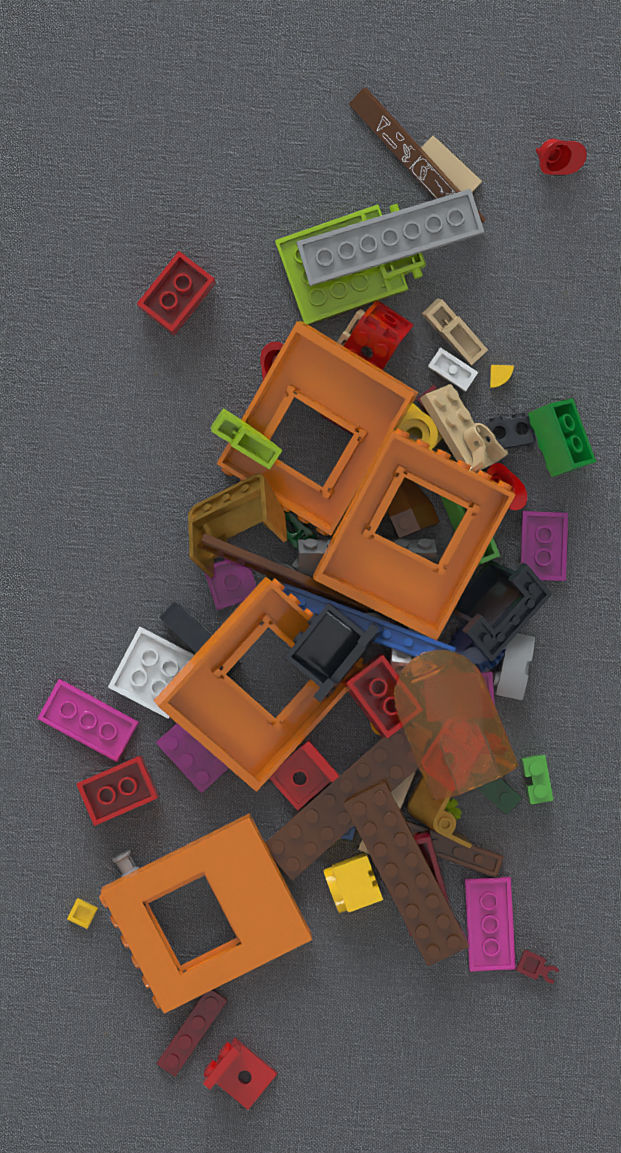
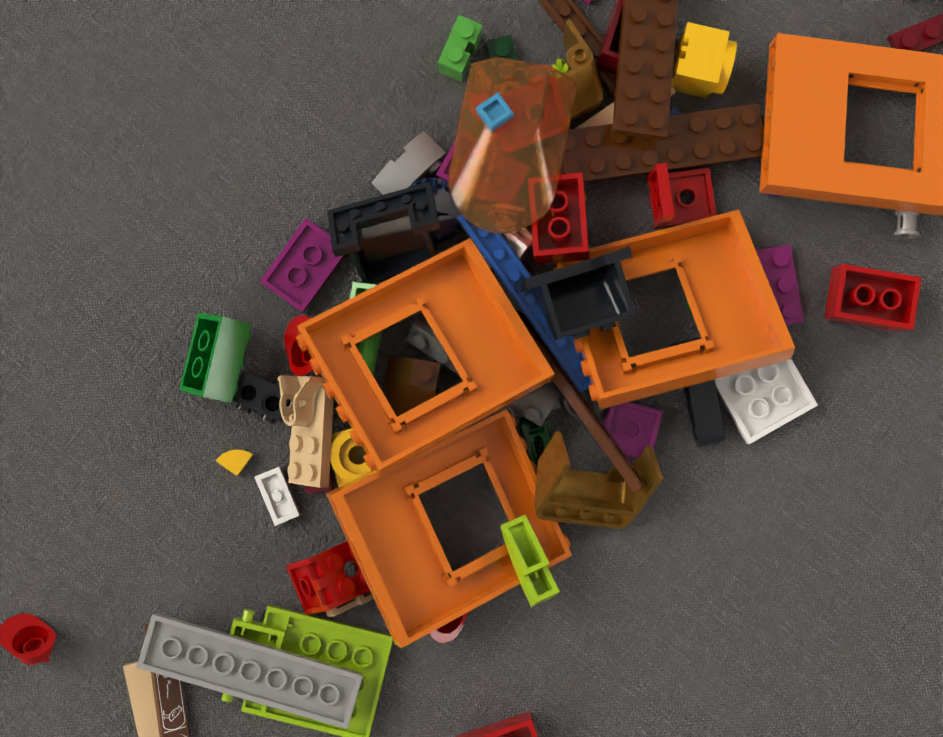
camera: 155 degrees left, 0 degrees up
(88, 720) = (854, 386): dark pink tile -> none
(454, 331) = (250, 533): tan slope -> none
(476, 733) = (494, 112): none -> dark azure tile

